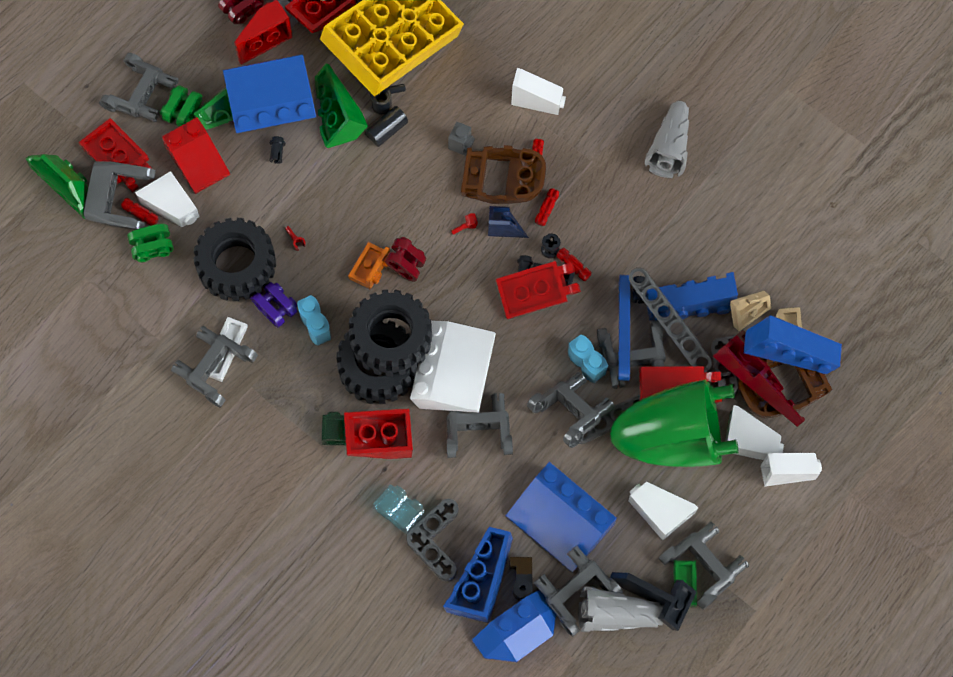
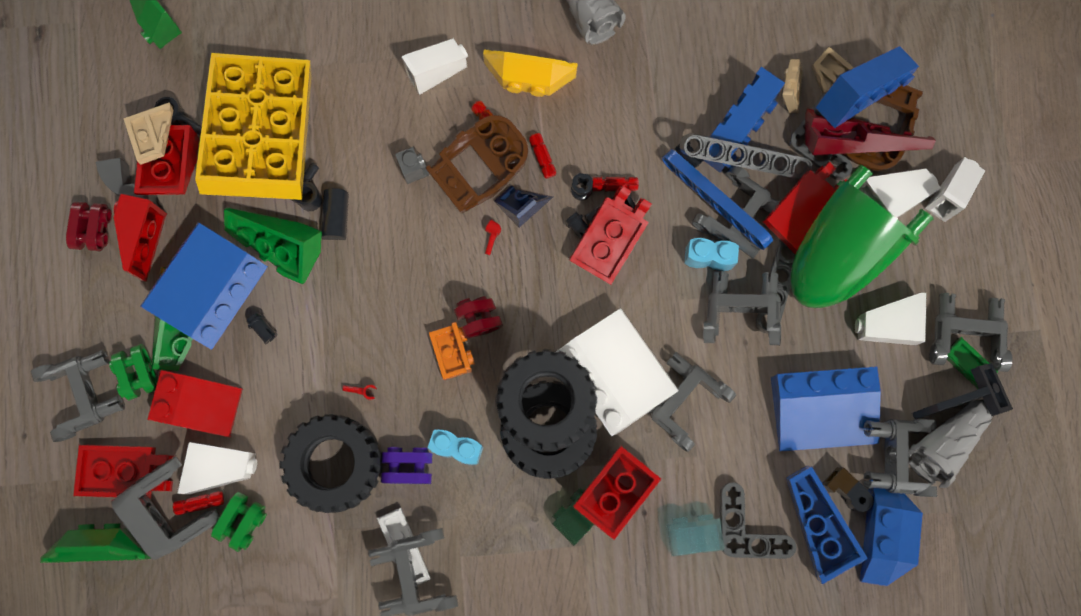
camera: 45 degrees left, 10 degrees up
(590, 152) = (529, 73): none -> yellow wedge

